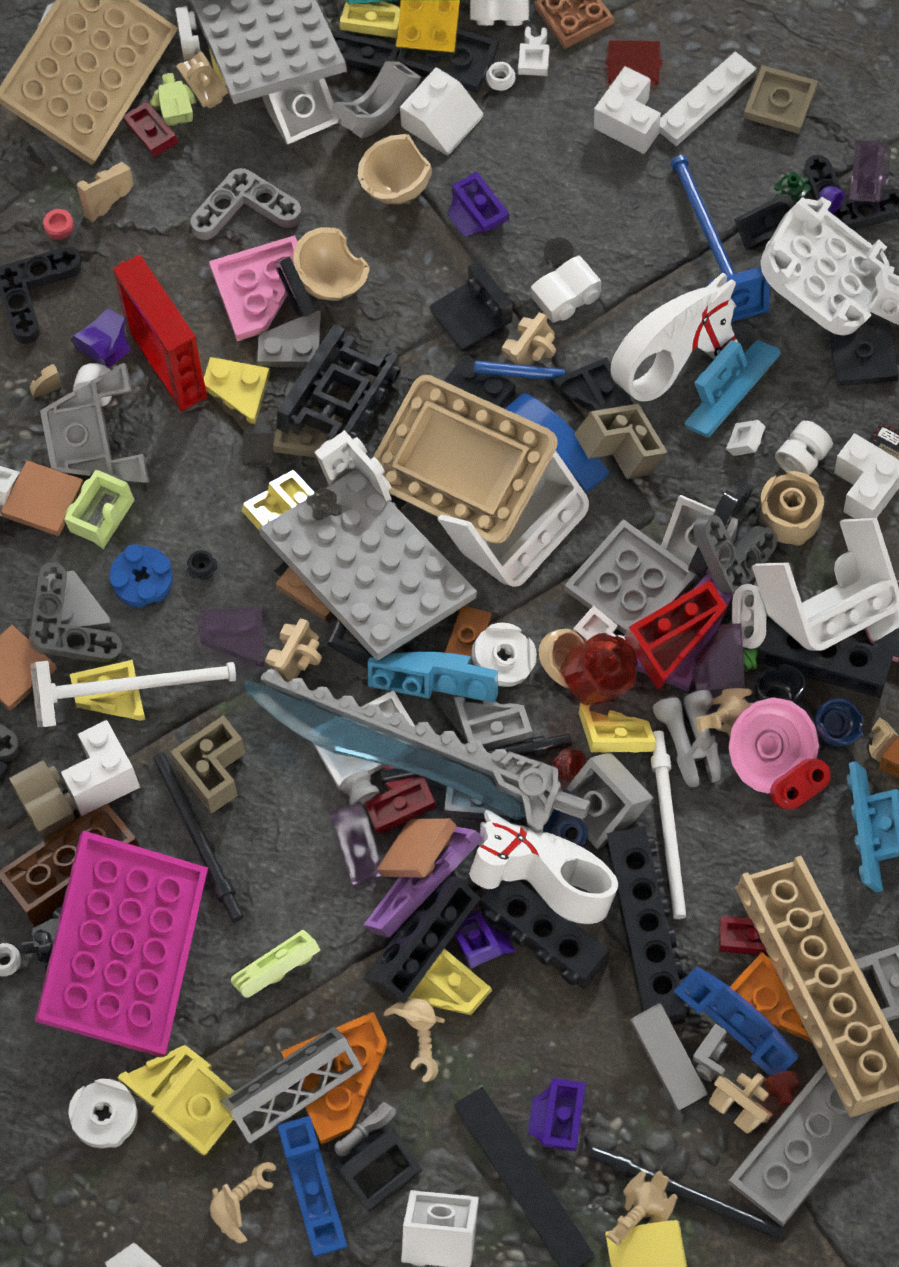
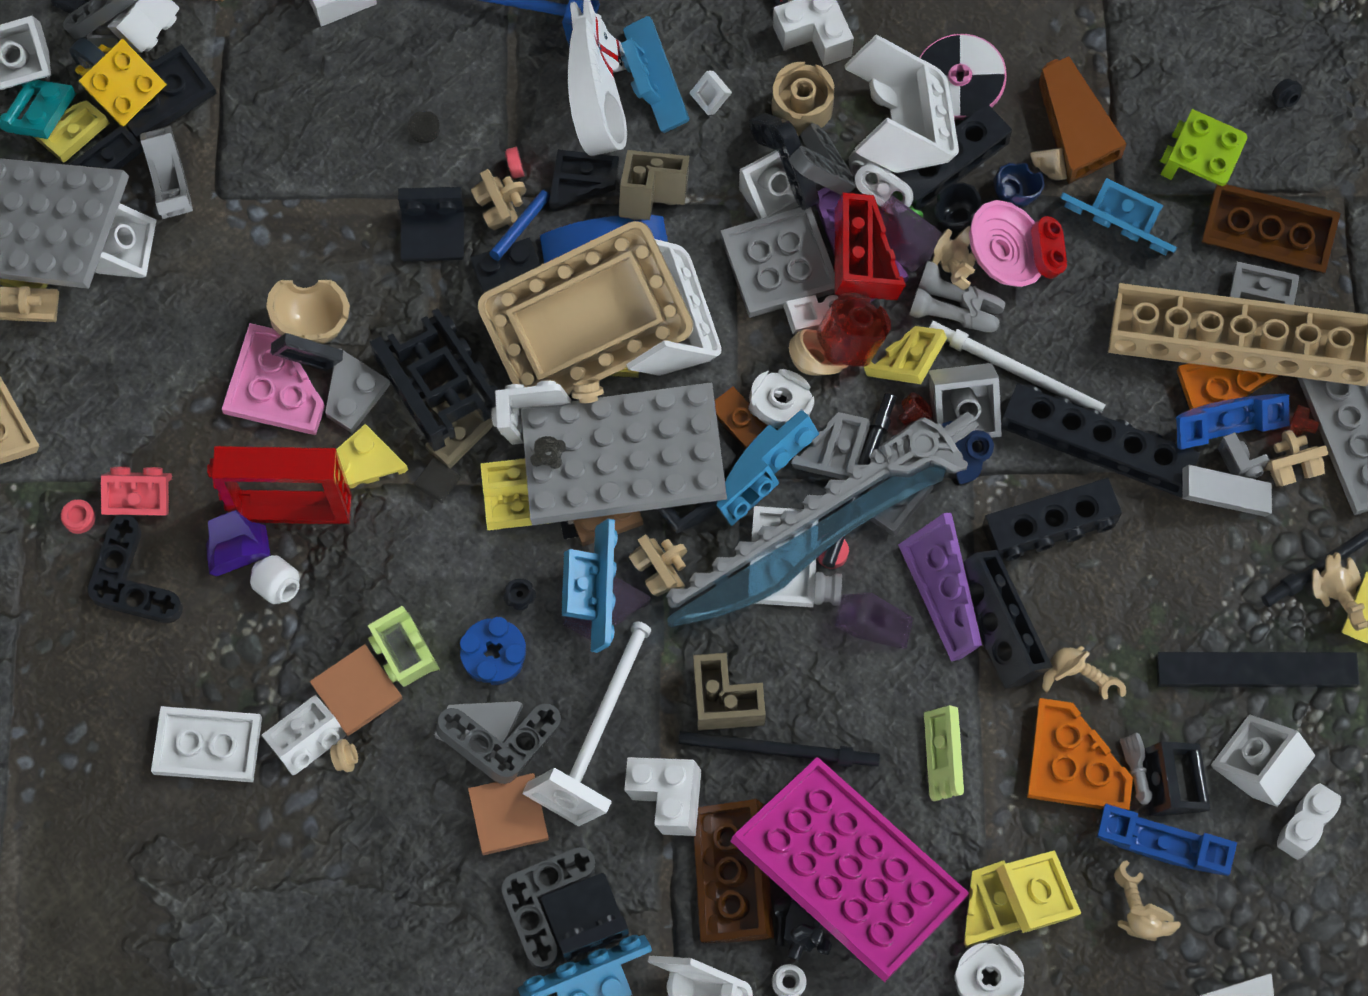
camera: 60 degrees left, 5 degrees up
(43, 799) = (658, 858): dark tan brick -> none
(46, 383) = (239, 612): tan tile -> none
(78, 432) = (318, 620): light grey wing -> none
(101, 194) = (82, 465): tan wing -> none
(101, 246) = (135, 492): none -> coral bracket
(122, 703) = (612, 738): light yellow wing -> none
(150, 129) = (43, 379): dark red plate -> none
(173, 101) = (30, 342): yellowish green piece -> none
(233, 603) = (589, 585): none -> dark azure bracket
(246, 195) = (173, 339): light grey beam -> none
(287, 1073) = (1062, 800): fence -> none
(394, 170) = (251, 201): tan cylinder -> none
(400, 804) = (862, 562): dark red plate -> none
(401, 502) = (587, 390): none -> tan plate
(417, 848) = (917, 573): nougat tile -> none
(440, 112) = (216, 133): white slope -> none
(451, 986) = (1057, 620): light yellow wing -> none
(475, 206) = (332, 162): dark purple slope -> none
(480, 941) = (1035, 575): dark purple slope -> none
(500, 69) = (212, 58): white plate -> none
(534, 54) = (216, 26): white plate -> none
(550, 866) = (1002, 478): white animal -> none
(558, 1114) = (1220, 608): dark purple slope -> none
(566, 289) = (468, 141): white brick -> none
(572, 334) = (514, 163): none -> coral tile
(739, 936) = (1152, 375): dark red plate -> none
(804, 448) = (754, 54): white wheel -> none

